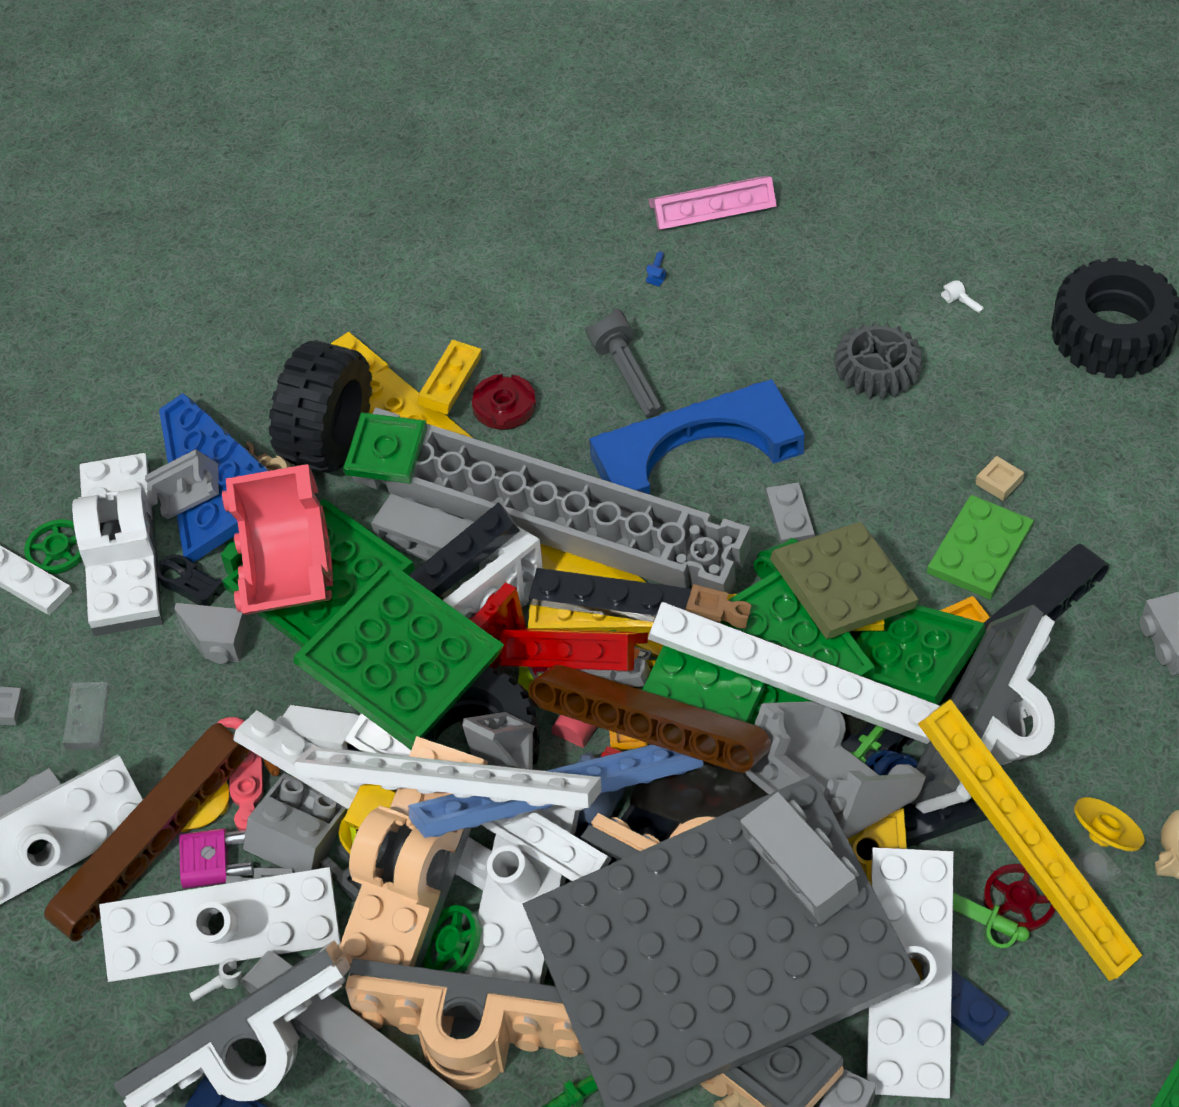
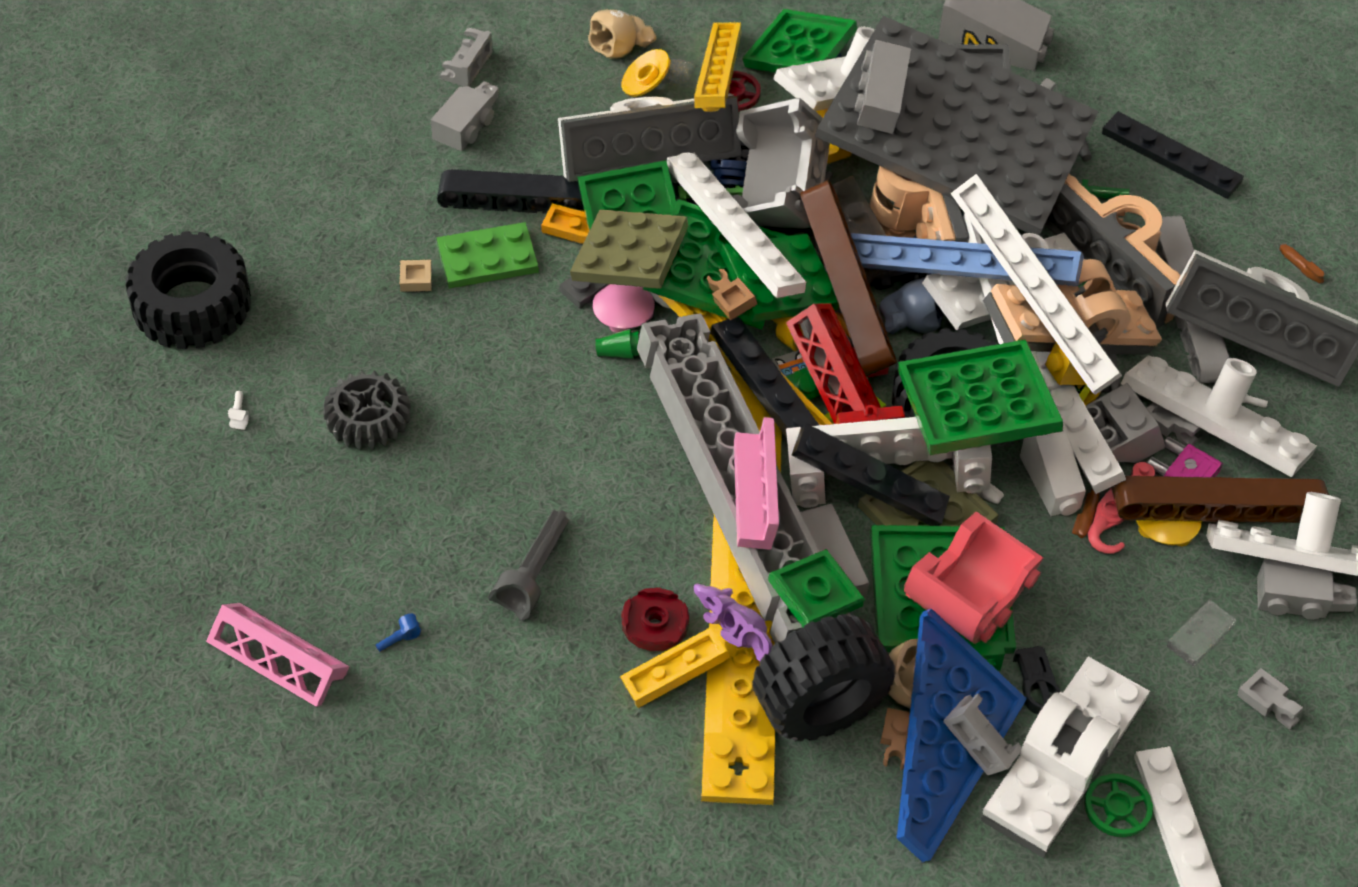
camera: 140 degrees left, 0 degrees up
(214, 631) = (1055, 613): light grey slope -> none
(445, 418) = (739, 624): none -> medium lavender animal
(500, 739) = (956, 326): light grey slope -> none
(506, 472) = (756, 487): none -> bright pink fence
(748, 415) = (619, 491): blue arch -> none
(789, 512) = (569, 371): light grey plate -> none
(990, 920) = (768, 84): bright green sword -> none
(1025, 997) = (799, 40): none -> green plate

